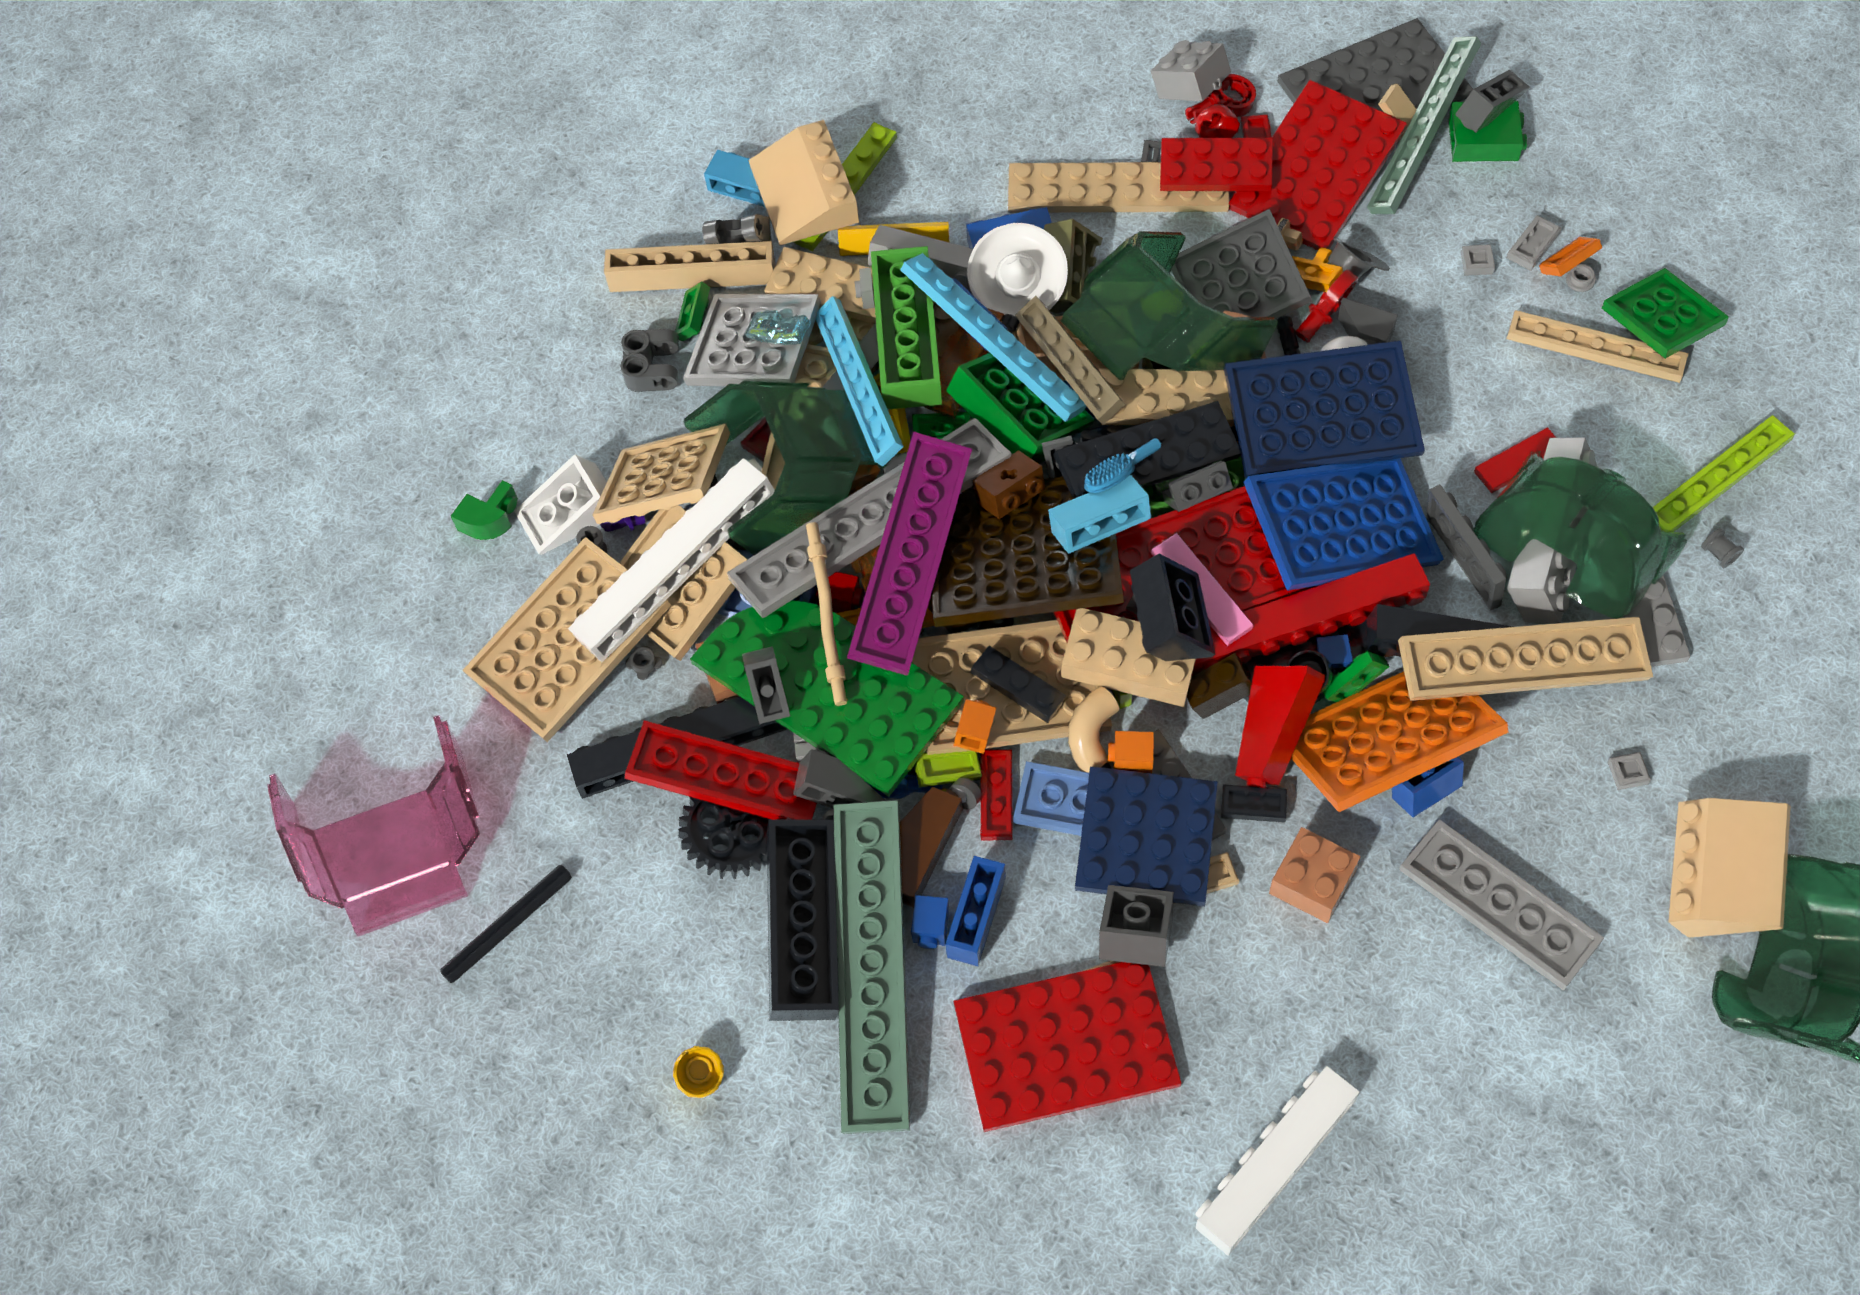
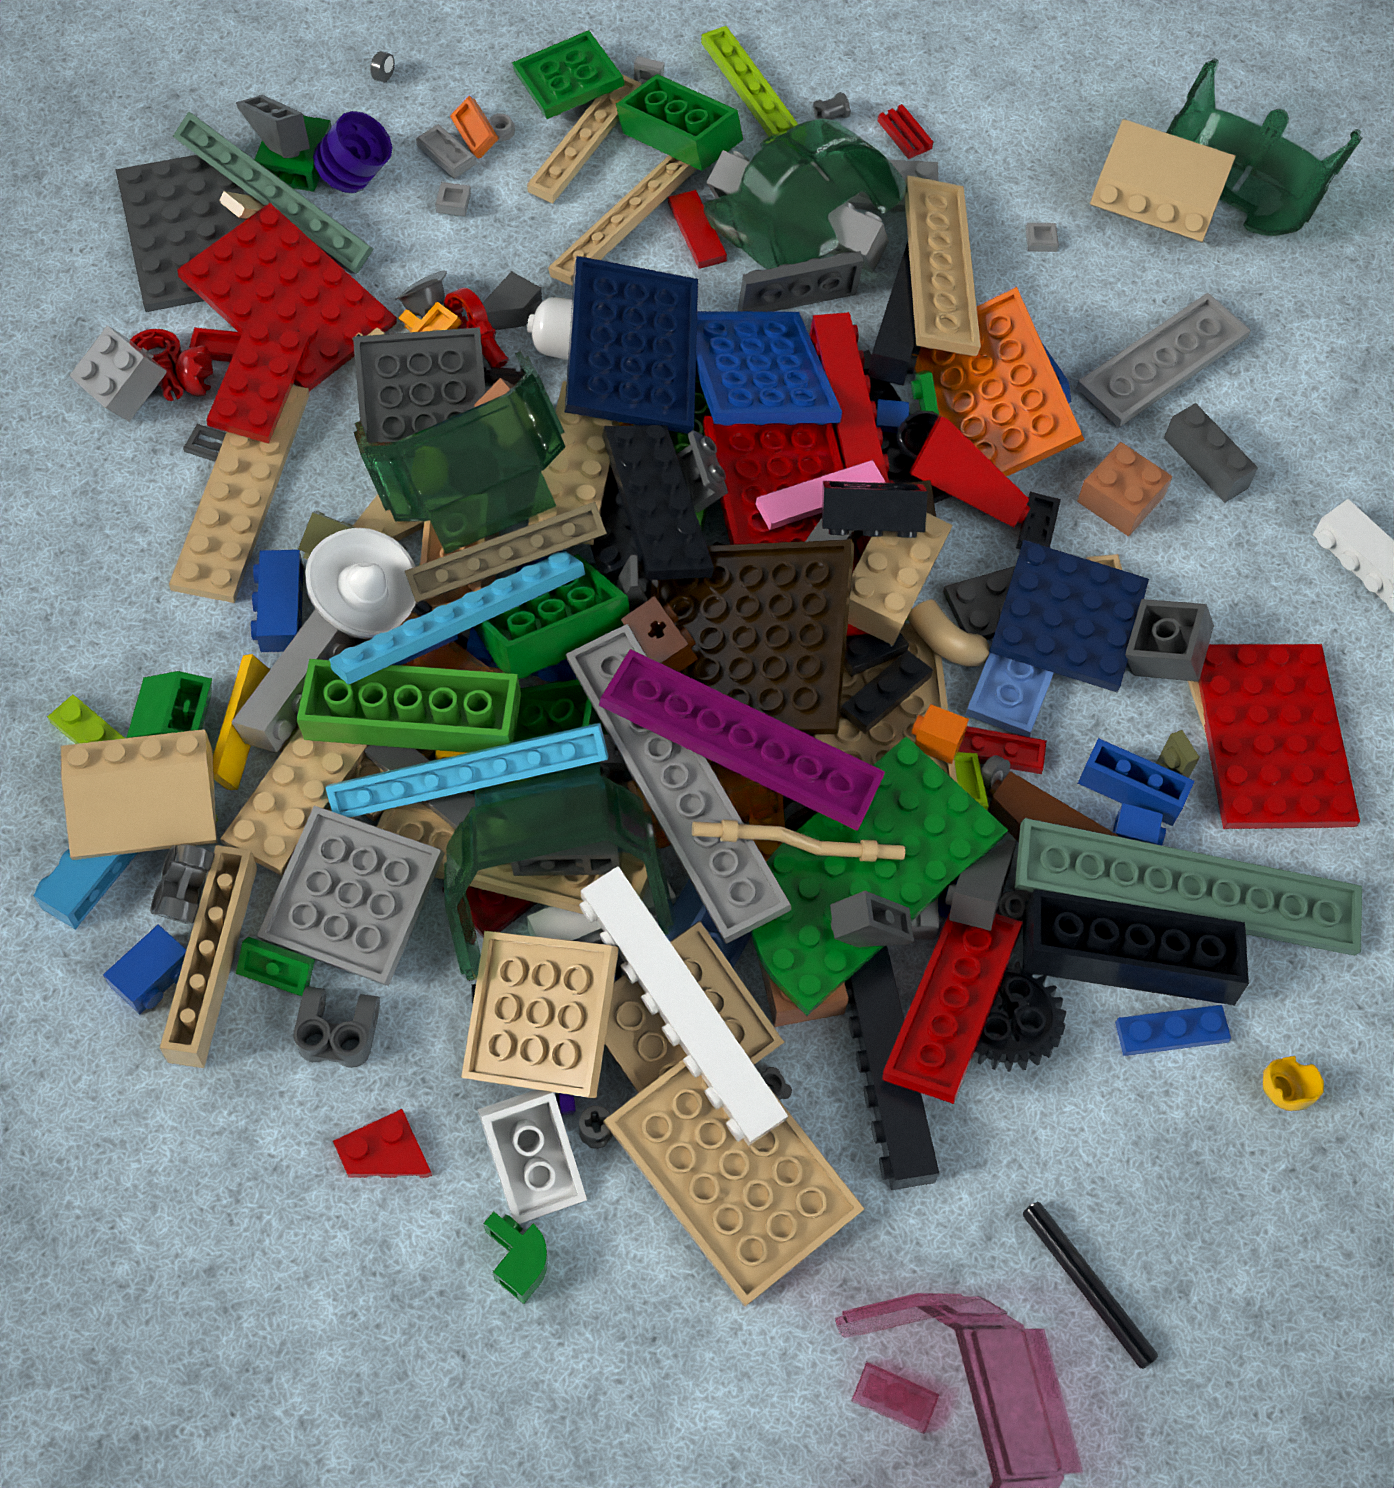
camera: 90 degrees left, 0 degrees up
(406, 779) = (895, 1397): none -> clear pink plate
(561, 415) = (383, 1150): none -> red wing
(672, 230) = (147, 970): none -> blue brick
(741, 973) = (1172, 1030): none -> blue plate
(773, 328) = (358, 854): clear light blue slope -> none
(864, 288) = (330, 746): light grey plate -> none
(888, 194) = (170, 704): none -> green slope
(1001, 941) = (1178, 754): none -> olive plate
(1050, 659) = (869, 651): none -> black plate
(1099, 514) = (734, 550): medium azure brick -> none
(1118, 468) = (688, 519): dark azure piece -> none
(1132, 751) = (982, 604): orange brick -> none
(1385, 954) = (1210, 452): none -> dark grey brick
(1497, 154) = (352, 152): none -> dark purple wheel
(1526, 403) = (623, 217): none -> tan plate
(1615, 171) = (382, 66): none -> dark grey tile
(1629, 408) = (679, 121): none -> green brick
(1700, 380) = (646, 69): none -> light grey tile
(1740, 607) = (909, 128): none -> red tile

